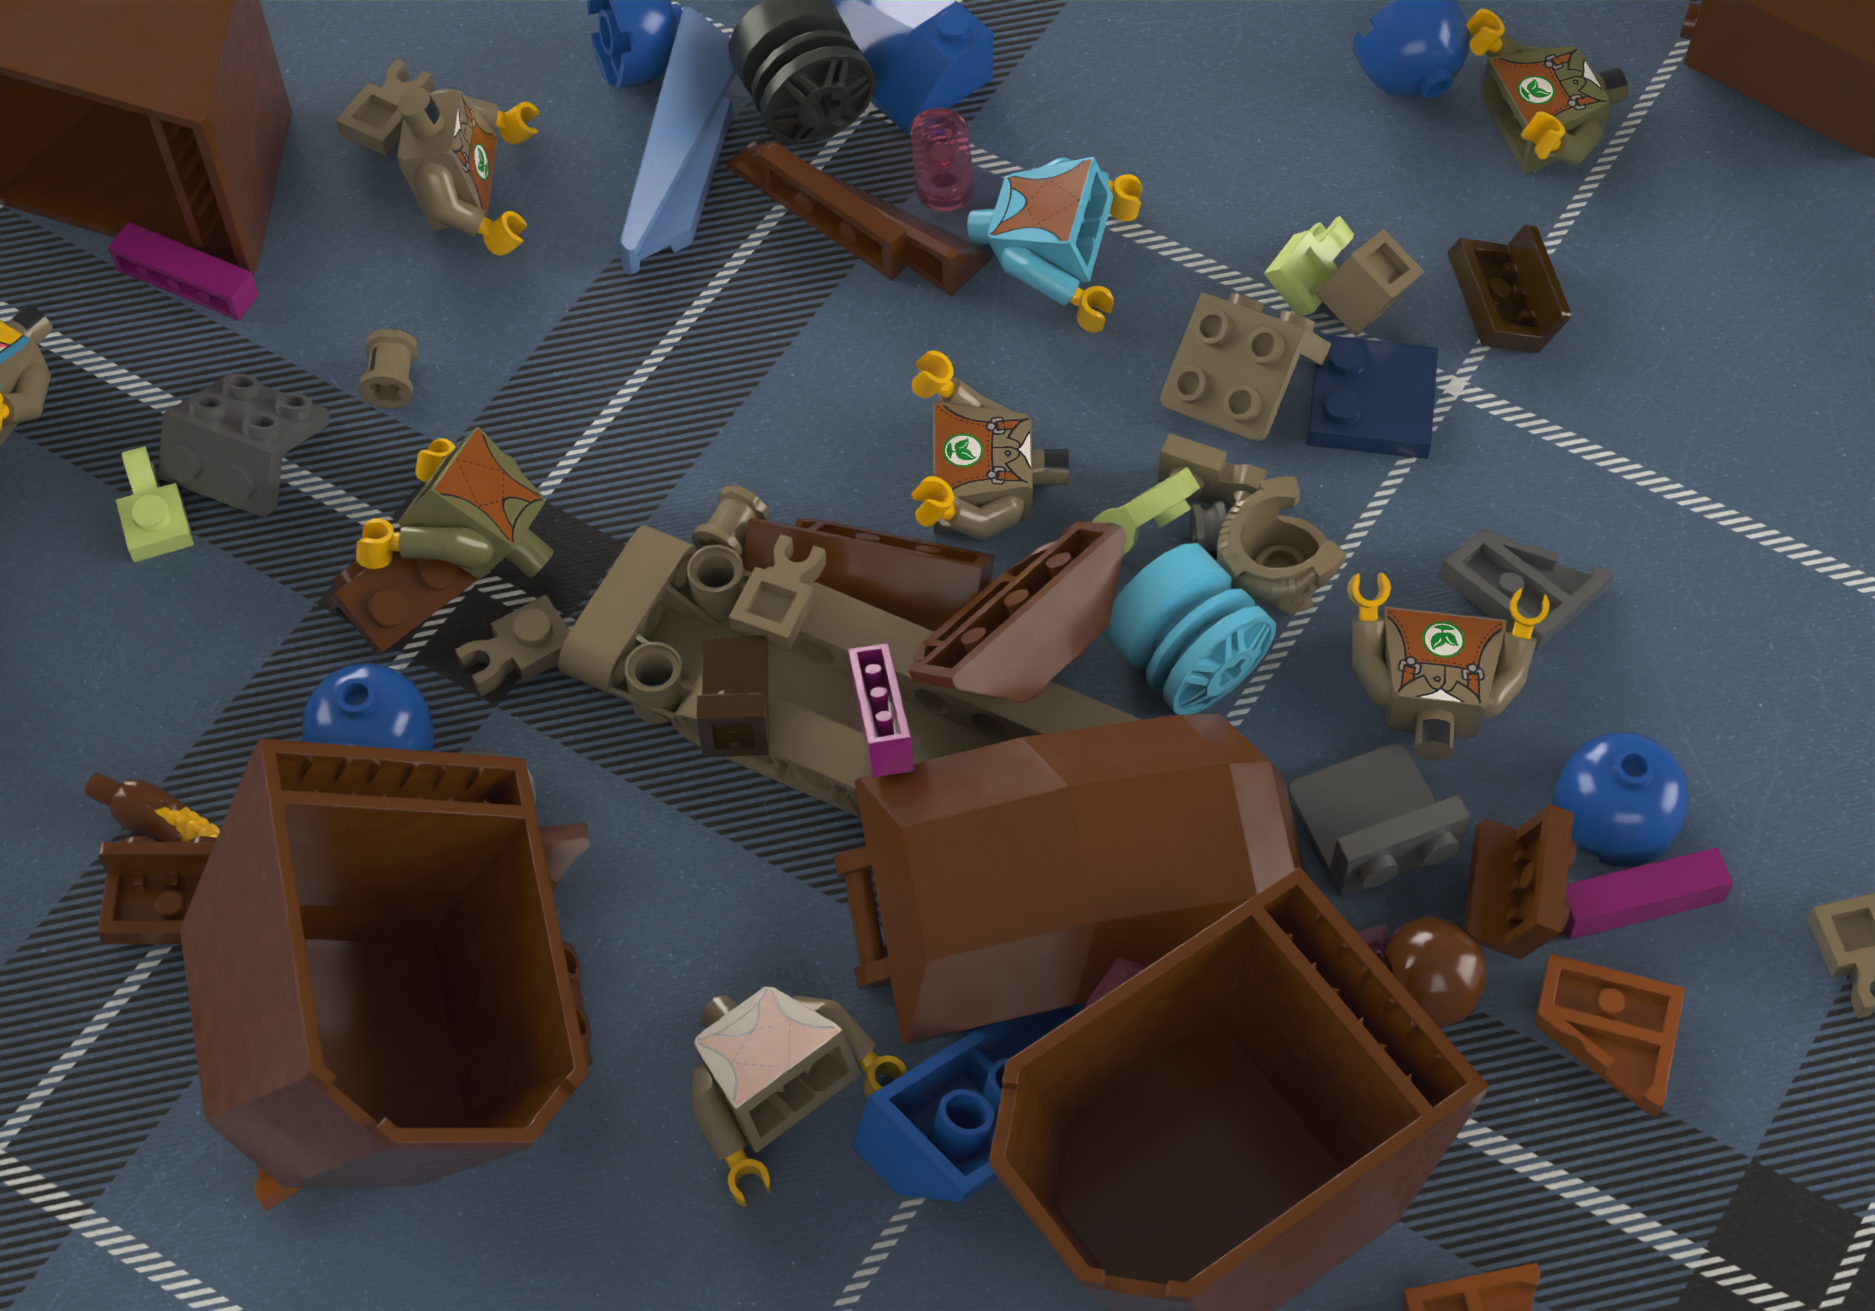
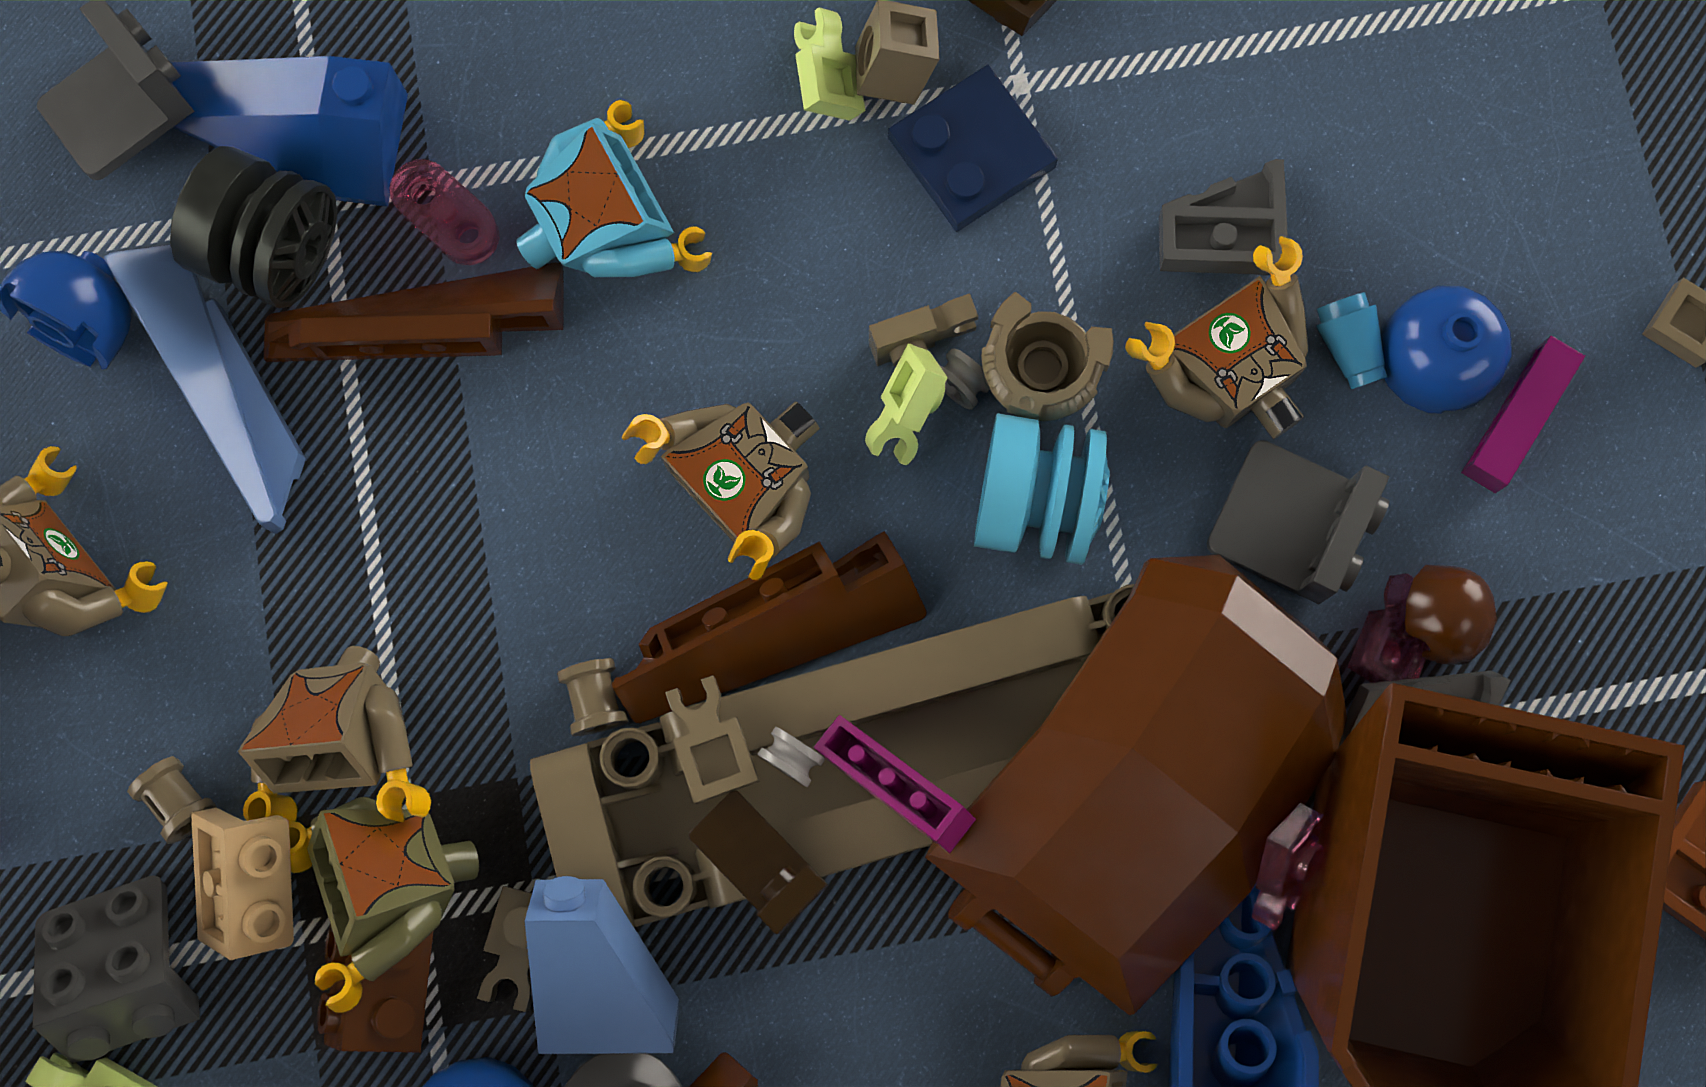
camera: 40 degrees left, 20 degrees up
(383, 445) = (242, 883): none -> tan bracket
(528, 394) = (332, 733): none -> dark tan torso
(549, 679) = (594, 974): none -> medium blue slope
(826, 646) = (791, 756): none -> light grey bush
(1028, 618) = (924, 608): reddish brown wedge -> none
(1238, 364) = (859, 210): dark tan bracket -> none
(1519, 882) = (1446, 486): reddish brown bracket -> none
(1549, 732) = (1353, 338): none -> dark azure cone
(1613, 1025) = (1594, 542): dark orange wing -> none

